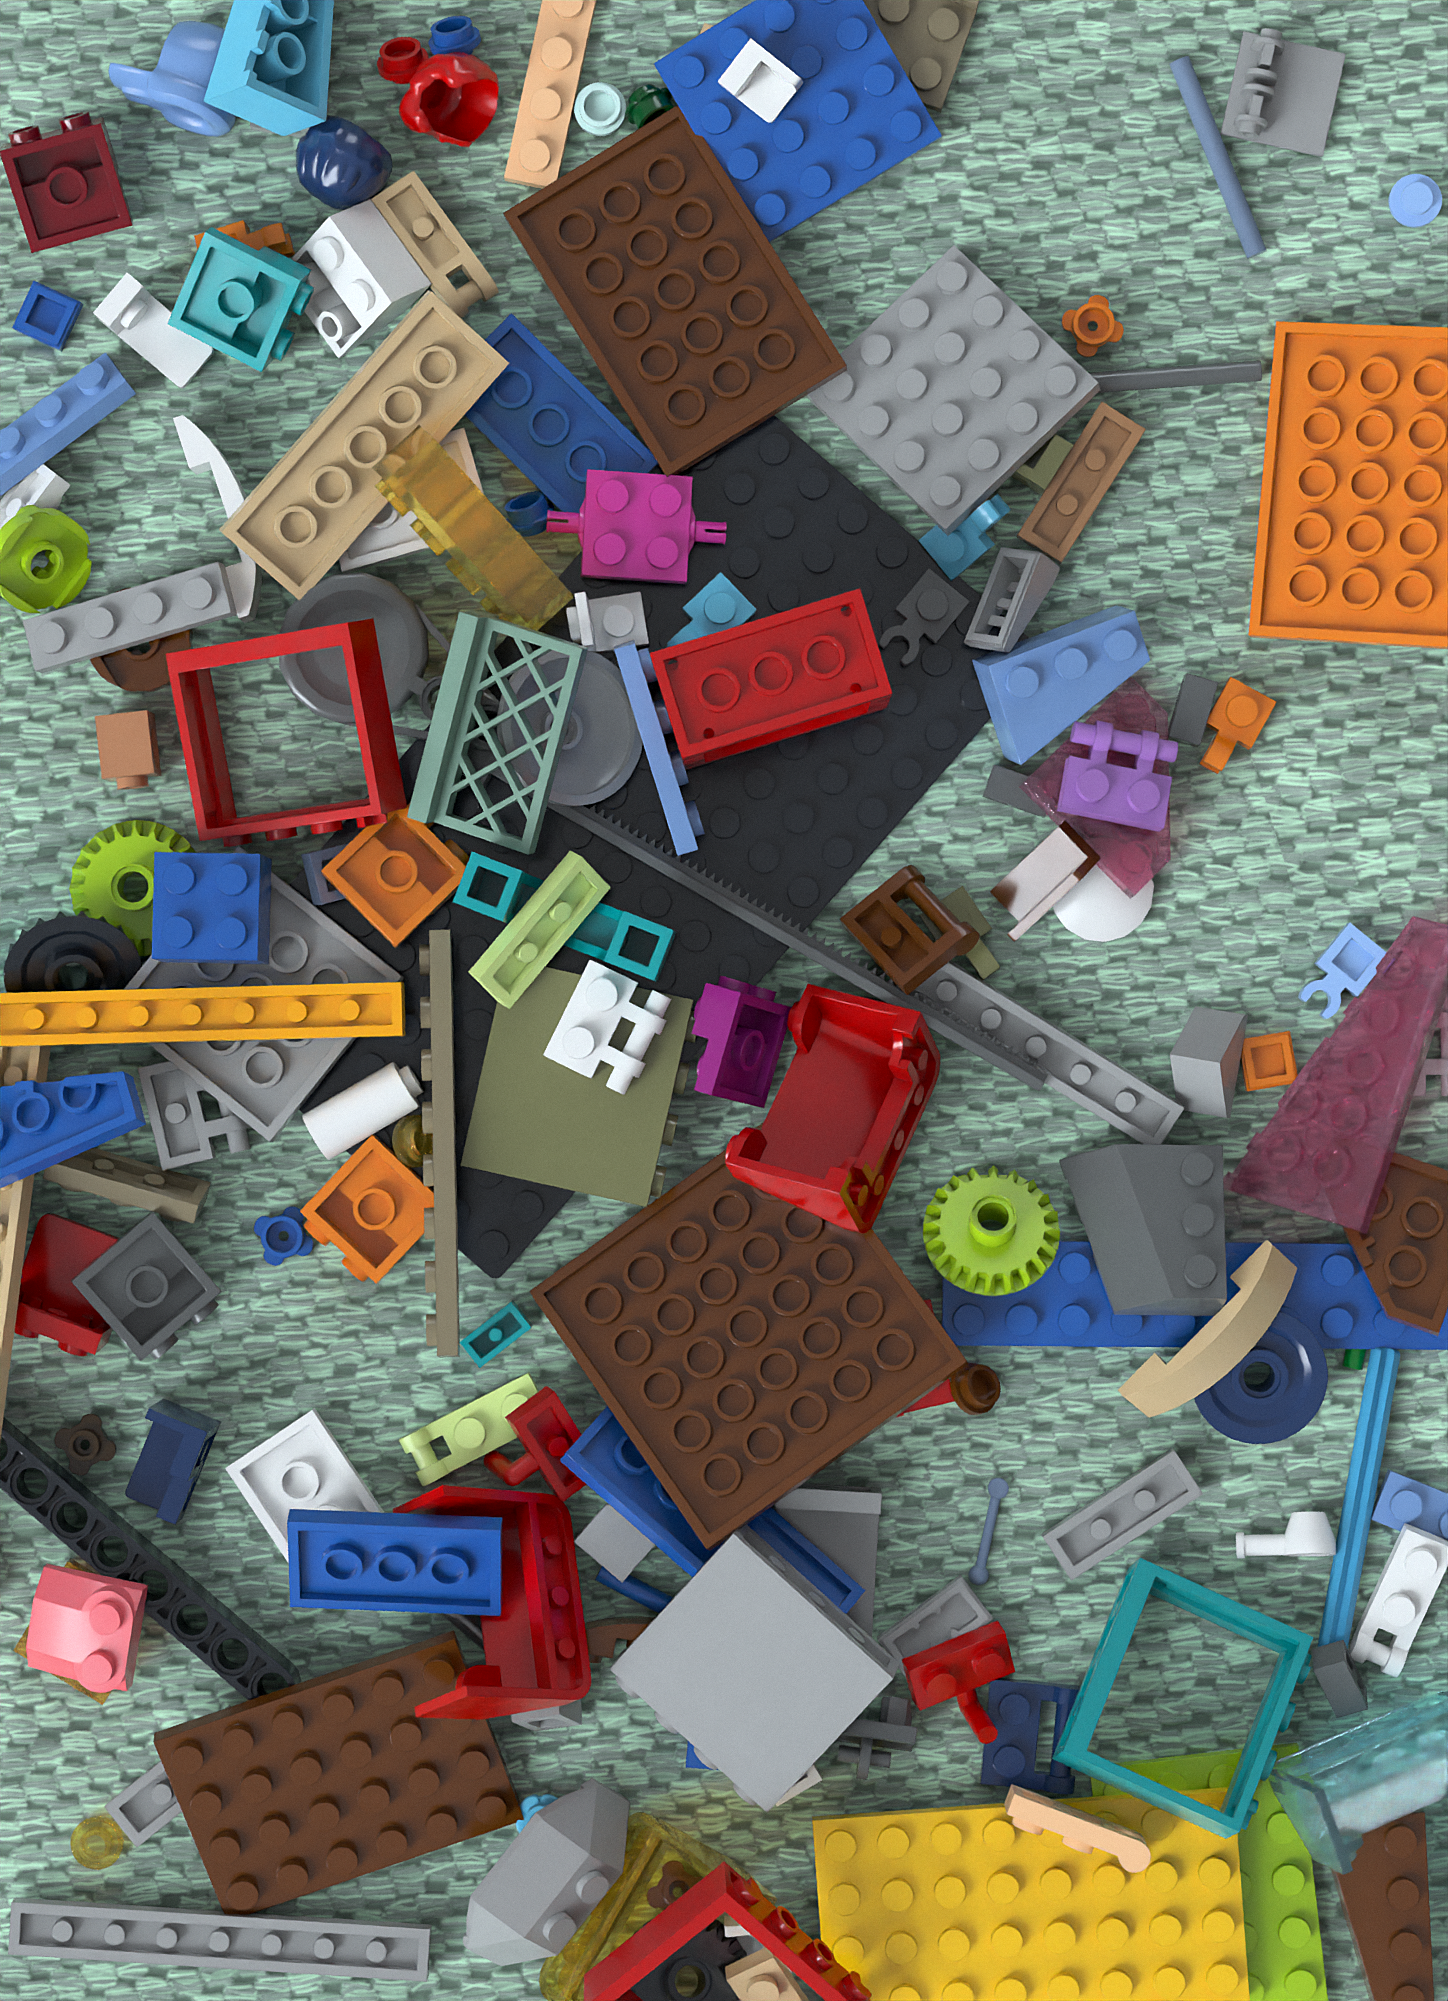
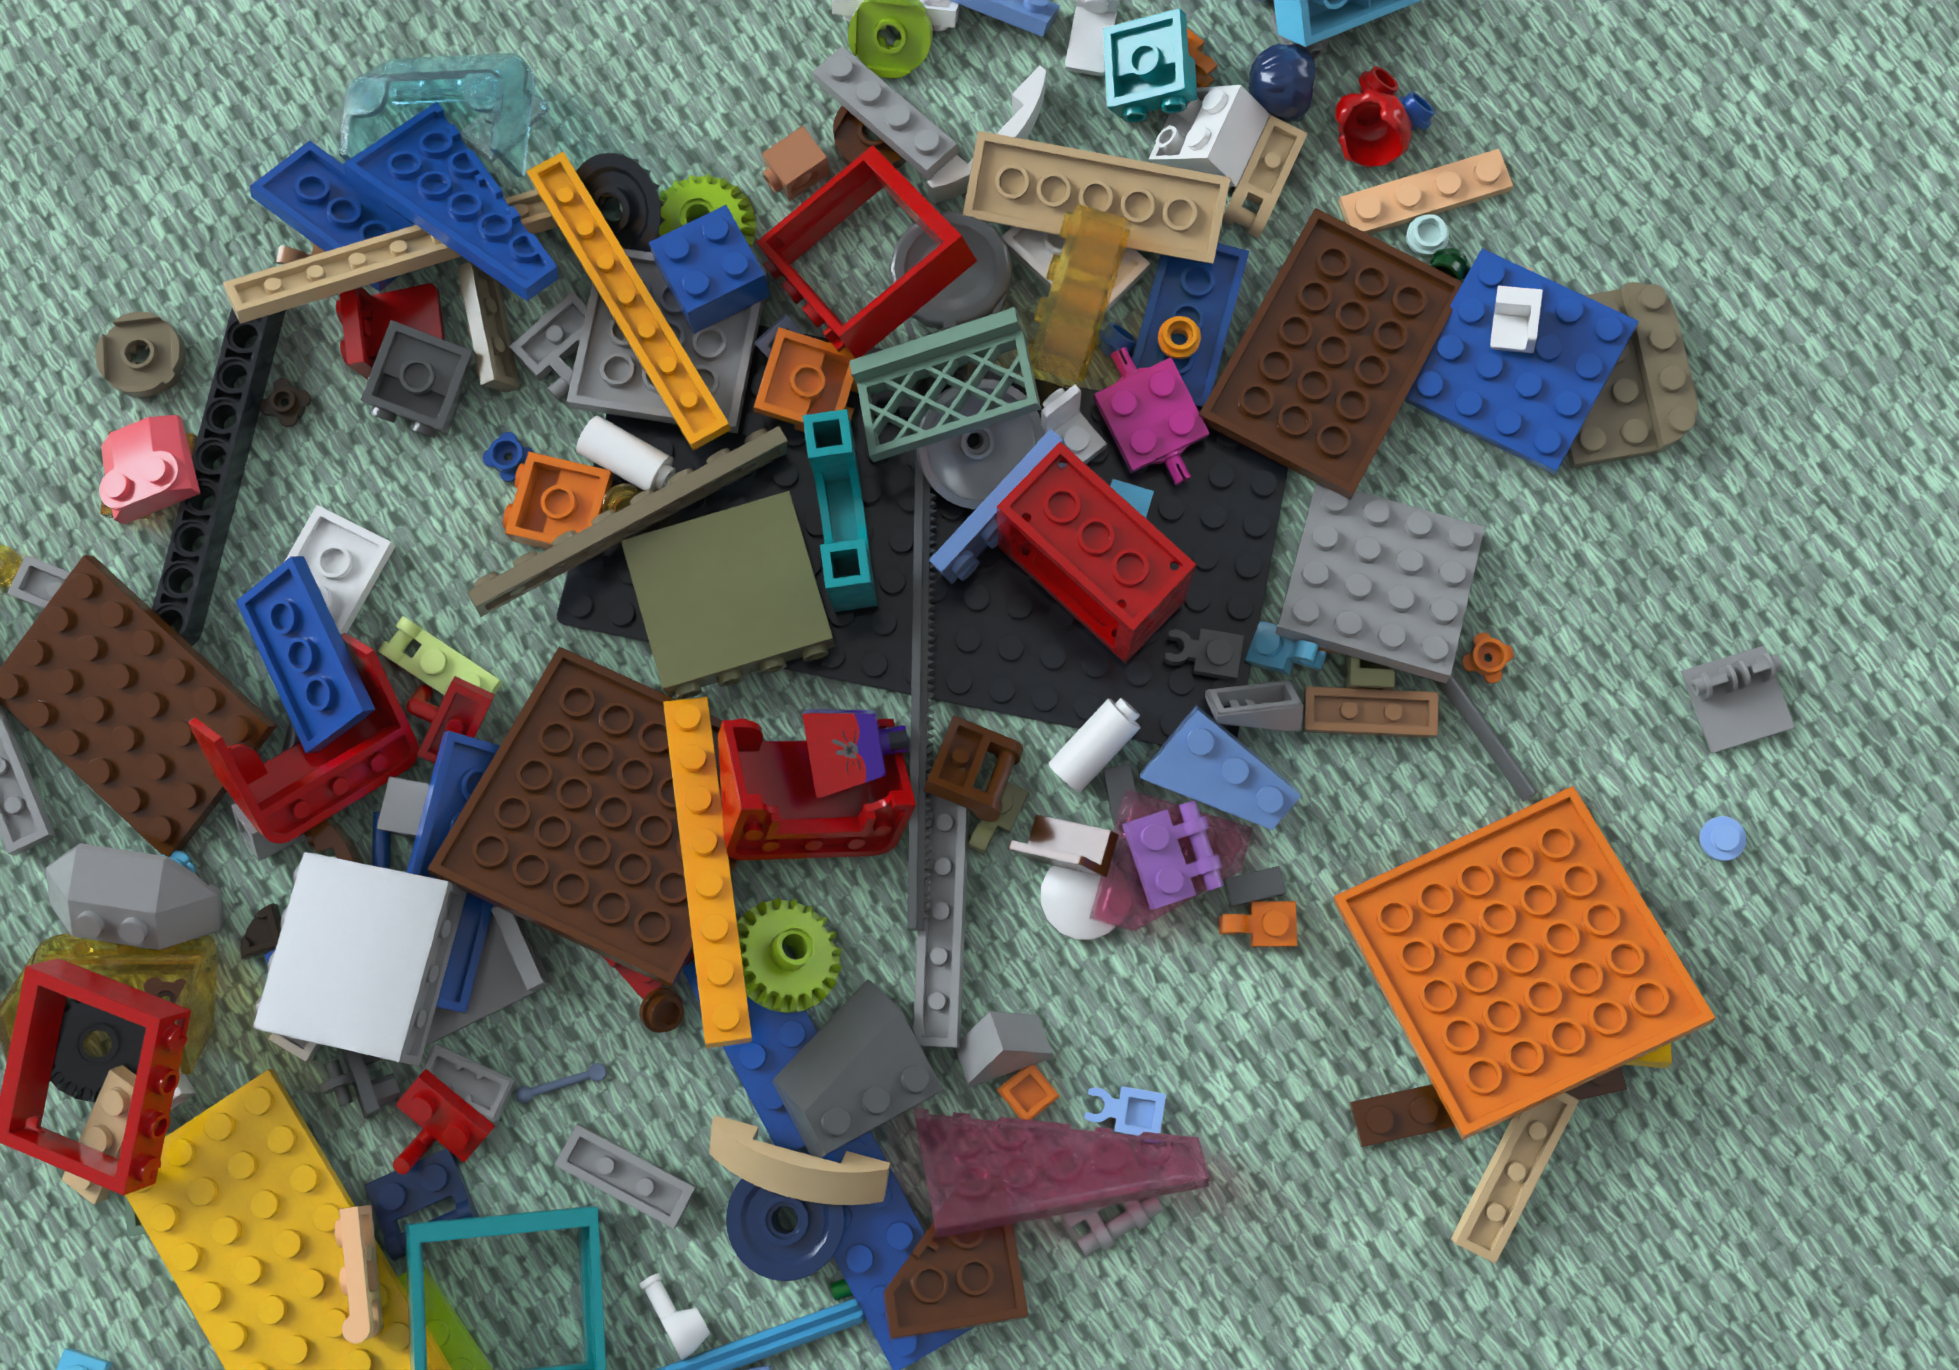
camera: 65 degrees right, 10 degrees down
(171, 1459) = (307, 467): dark blue panel -> none
(496, 1334) = (516, 641): teal piece -> none
(539, 929) = (821, 498): yellowish green plate -> none
(564, 430) = (1182, 326): none -> light orange plate
(592, 1019) = (777, 572): white plate -> none
(659, 1758) = (262, 932): none -> dark brown tile
(743, 1040) = (823, 682): magenta plate -> none
(819, 1047) = (848, 747): none -> torso
(865, 1263) = (707, 874): none -> light orange plate
(954, 788) = (1095, 743): none -> white brick
(1217, 157) = (1663, 679): sand blue bar -> none

